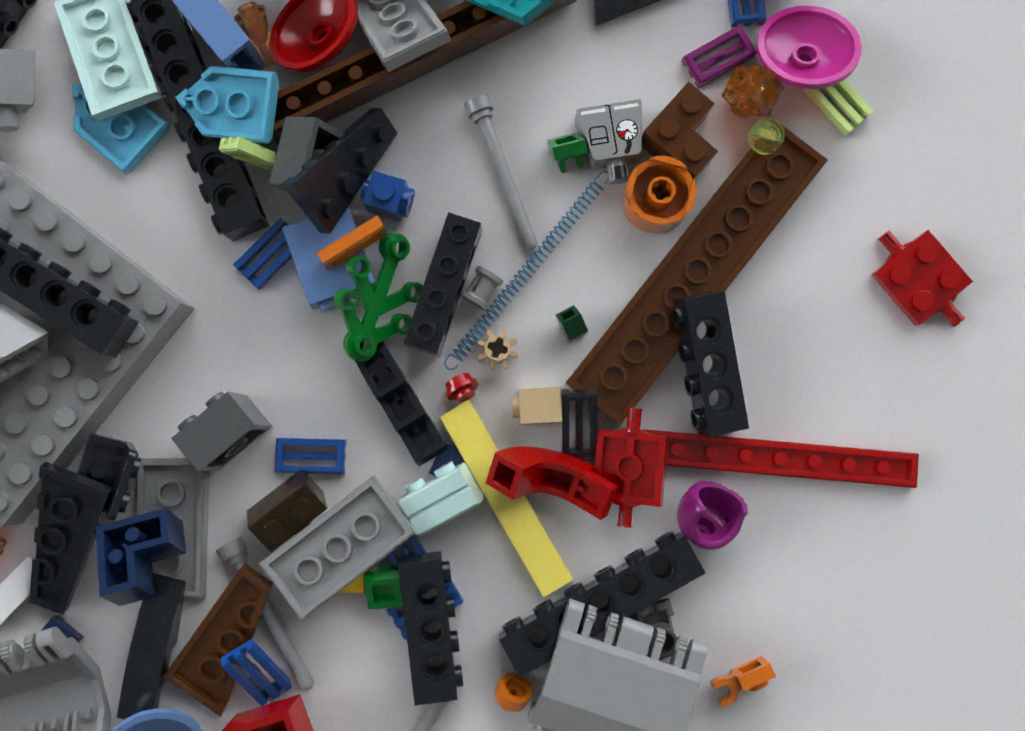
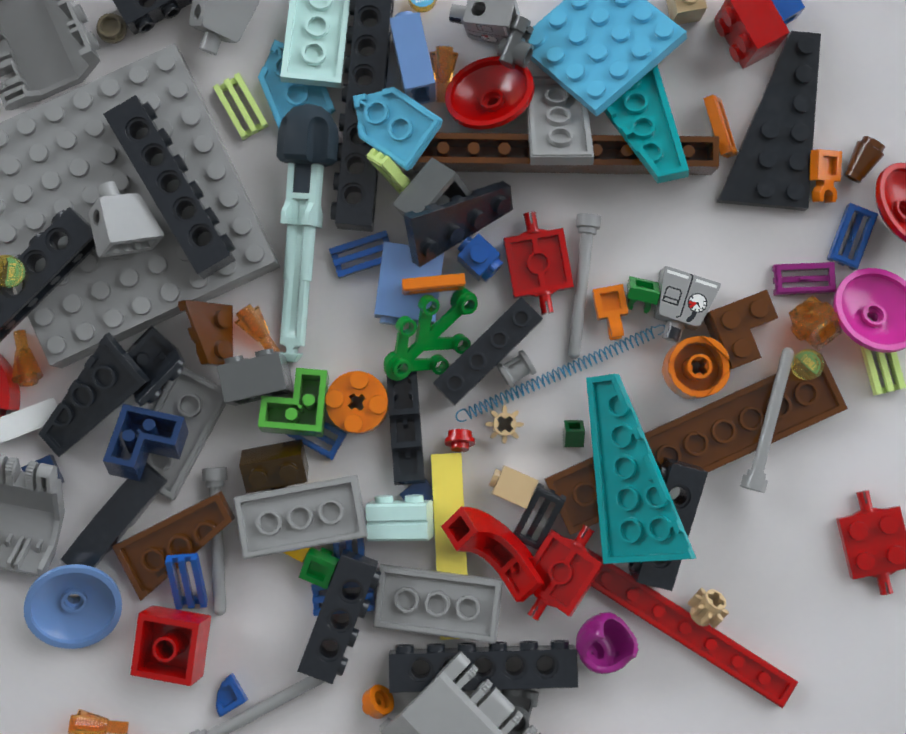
camera: 25 degrees right, 0 degrees up
(50, 153) = (229, 85): none -> yellowish green tile
(150, 405) = (210, 330): none -> reddish brown wing
(157, 171) = (307, 144): none -> piece
(193, 377) = (253, 323): none -> clear orange cone
(287, 439) = (302, 413): none -> bright green brick
(318, 404) = (340, 397): none -> orange brick
(449, 172) = (538, 263): none -> red plate
(522, 562) = (438, 603): none -> light grey tile
(544, 178) = (610, 305): none -> orange plate
(662, 354) = (632, 498): none -> teal wing
(773, 273) = (756, 477): none -> light grey piece
(793, 426) = (708, 607): none -> tan gear

